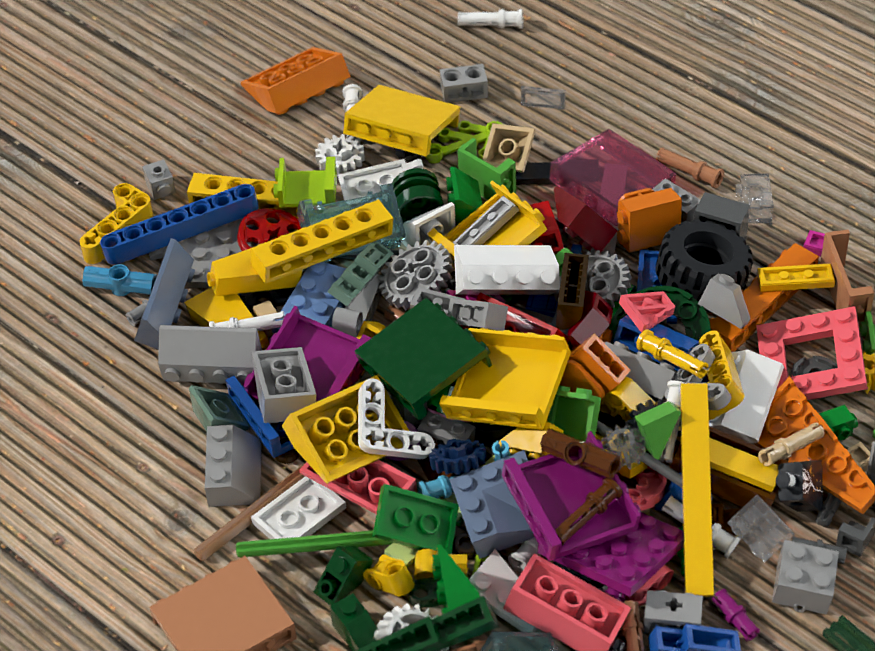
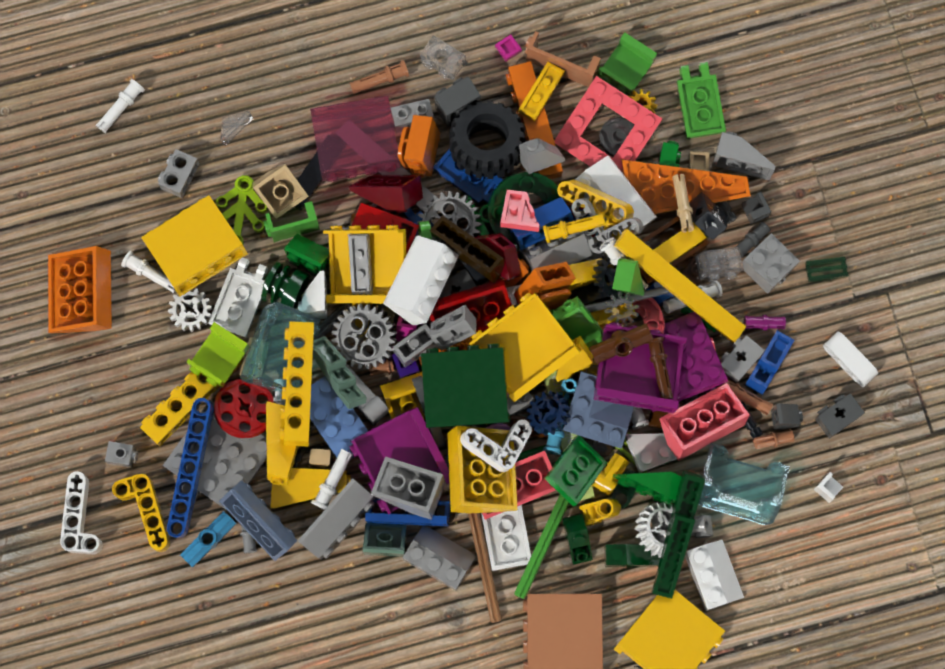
camera: 60 degrees left, 30 degrees up
(75, 180) = (80, 512): none -> white beam

